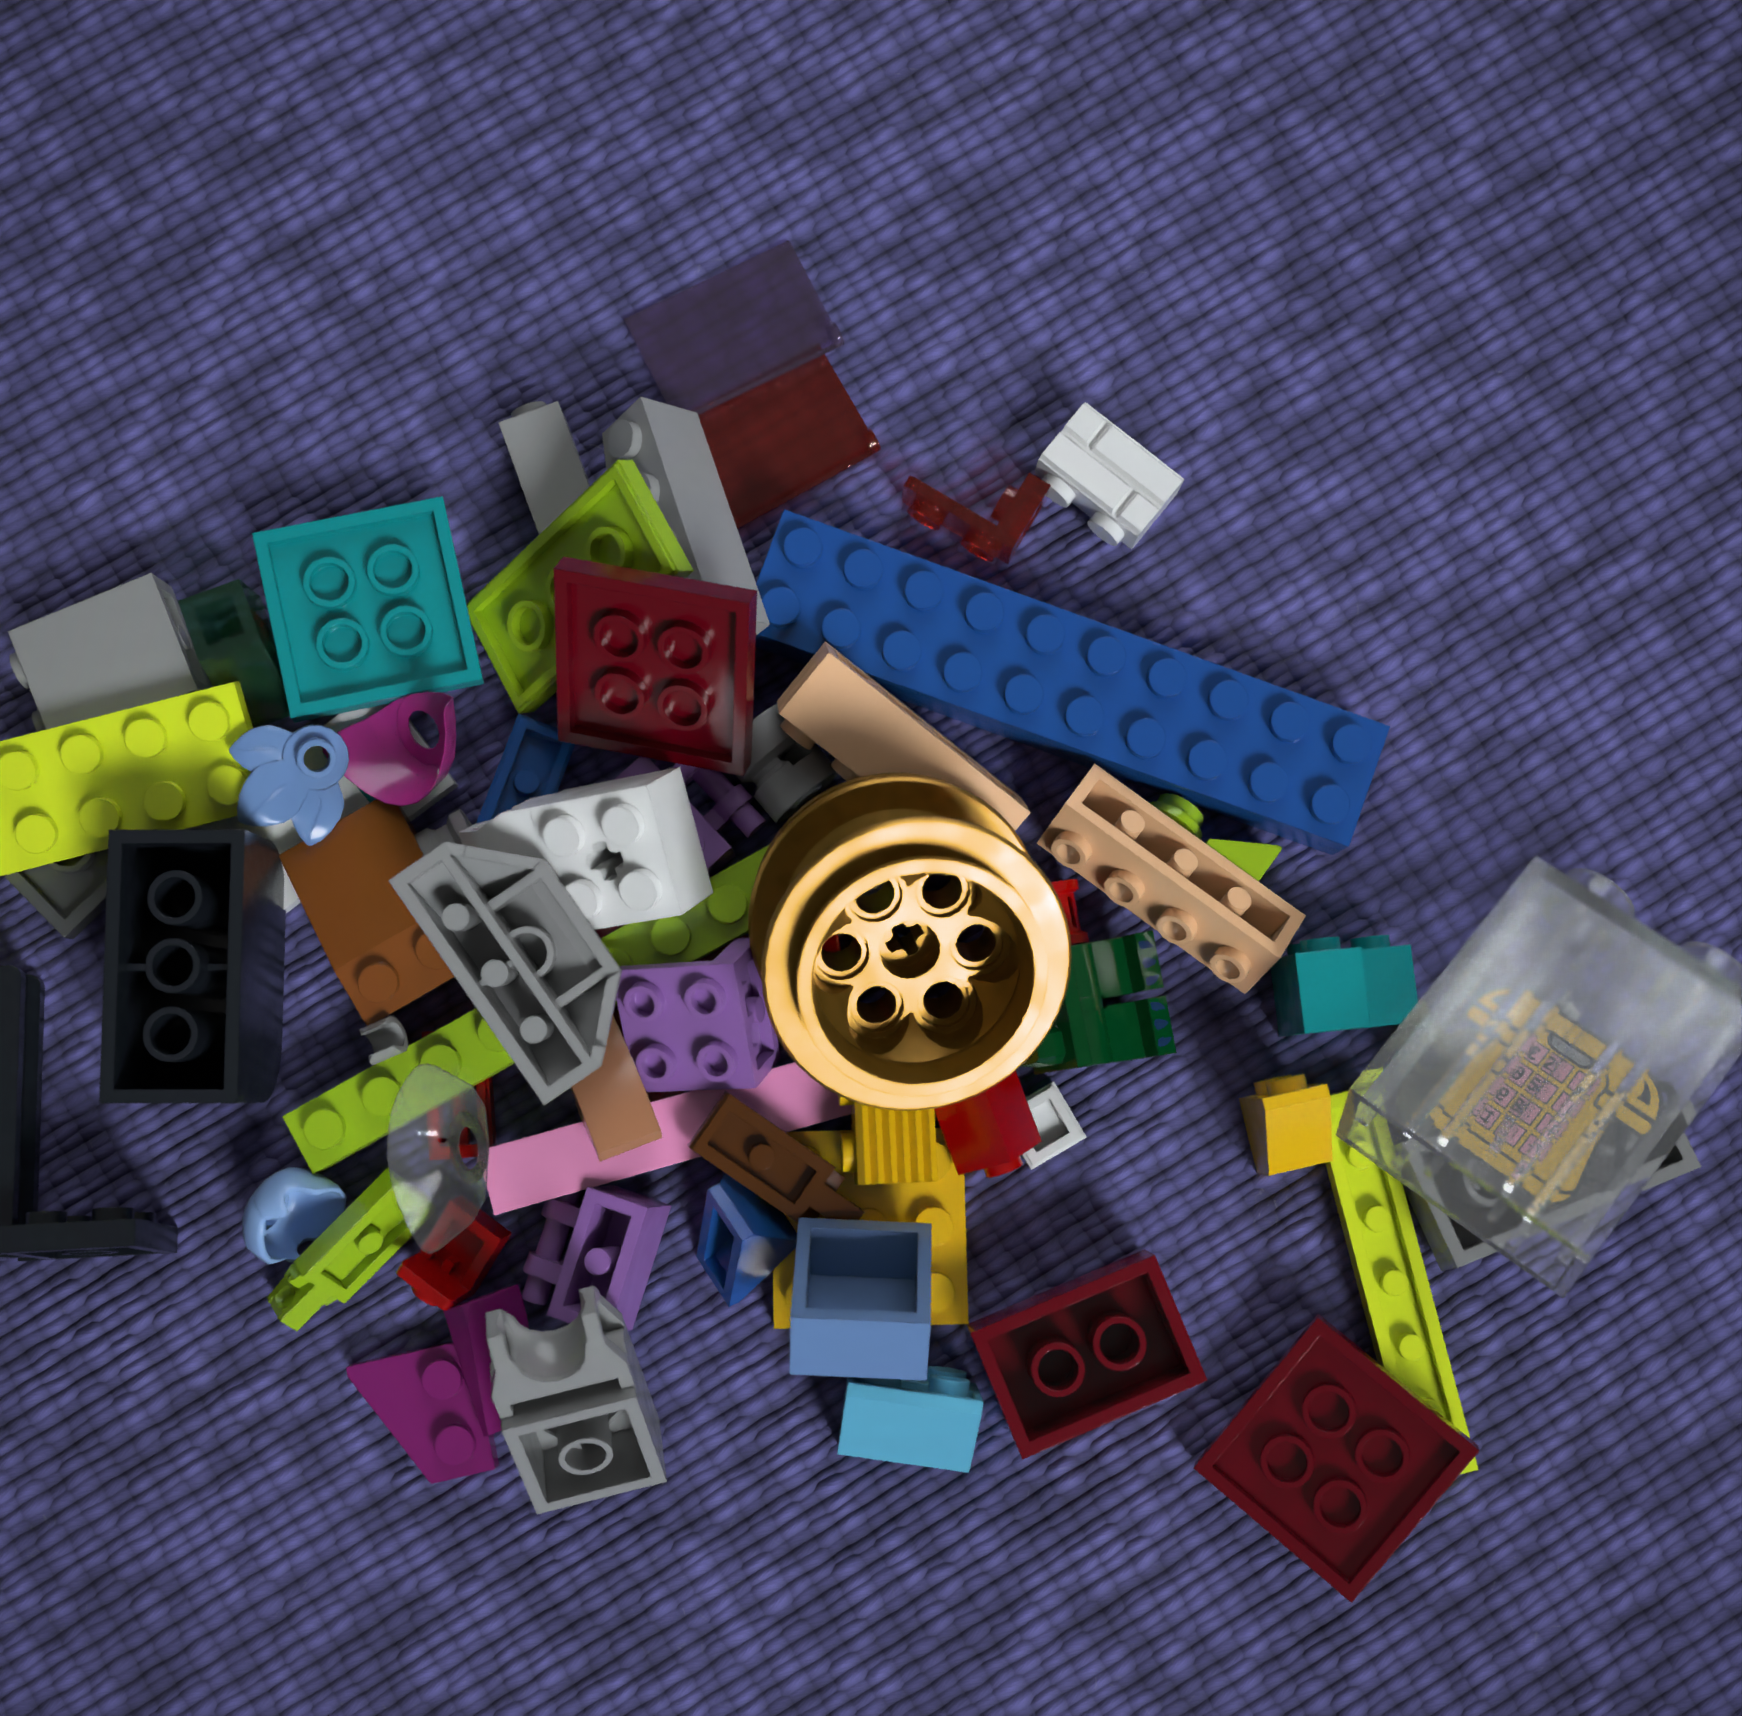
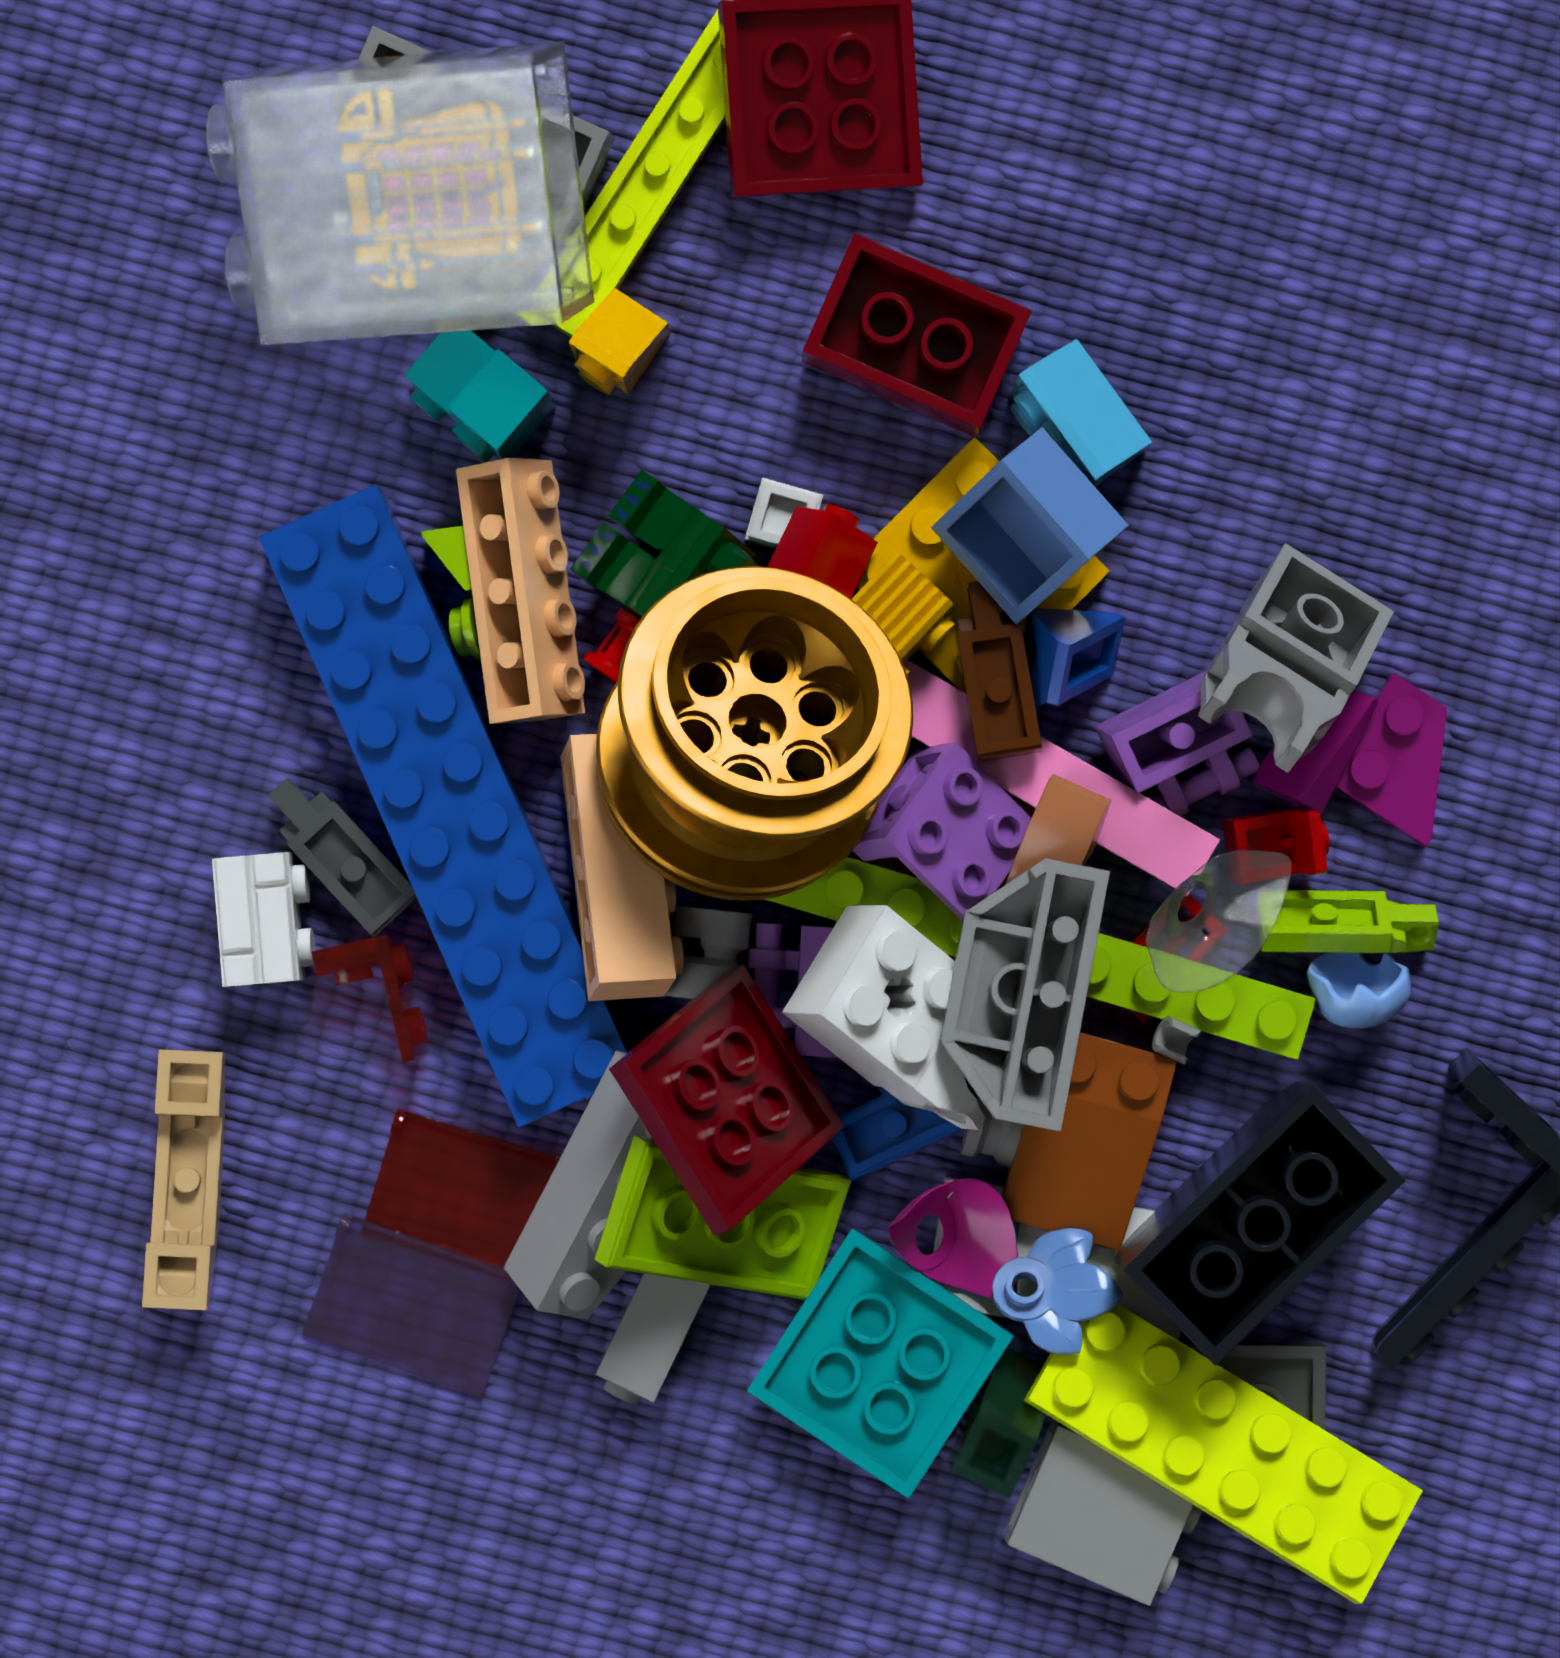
camera: 130 degrees left, 5 degrees up
(969, 257) = (186, 1180): none -> tan slope
(1099, 575) = (343, 857): none -> dark grey hinge

